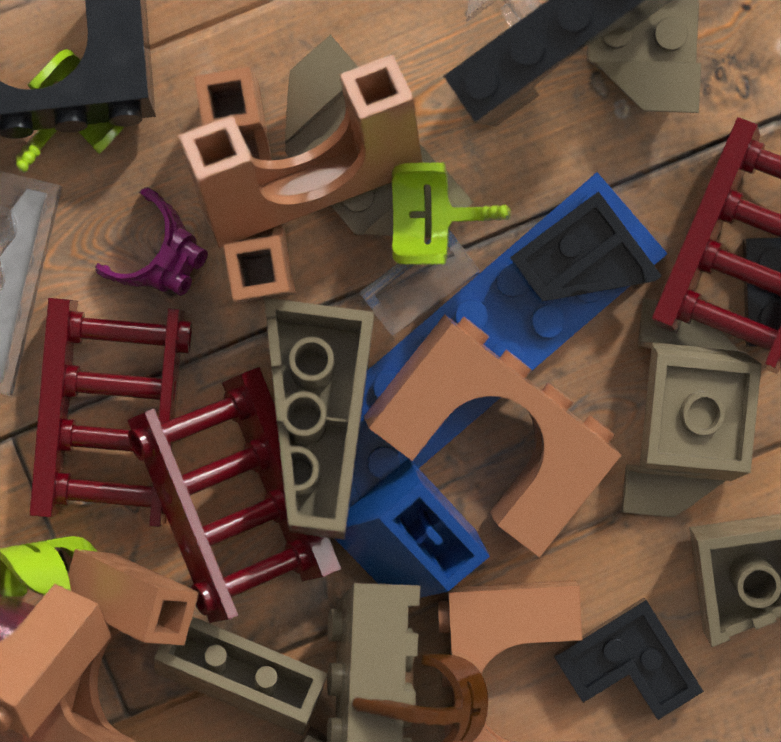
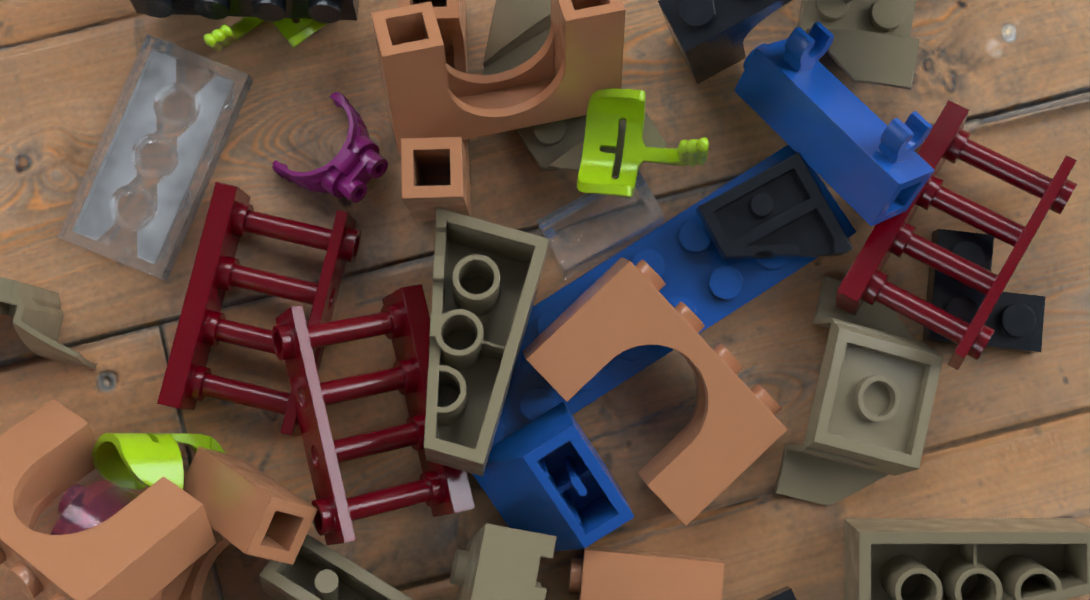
camera: 10 degrees right, 5 degrees down
(627, 161) = (832, 128): none -> blue brick

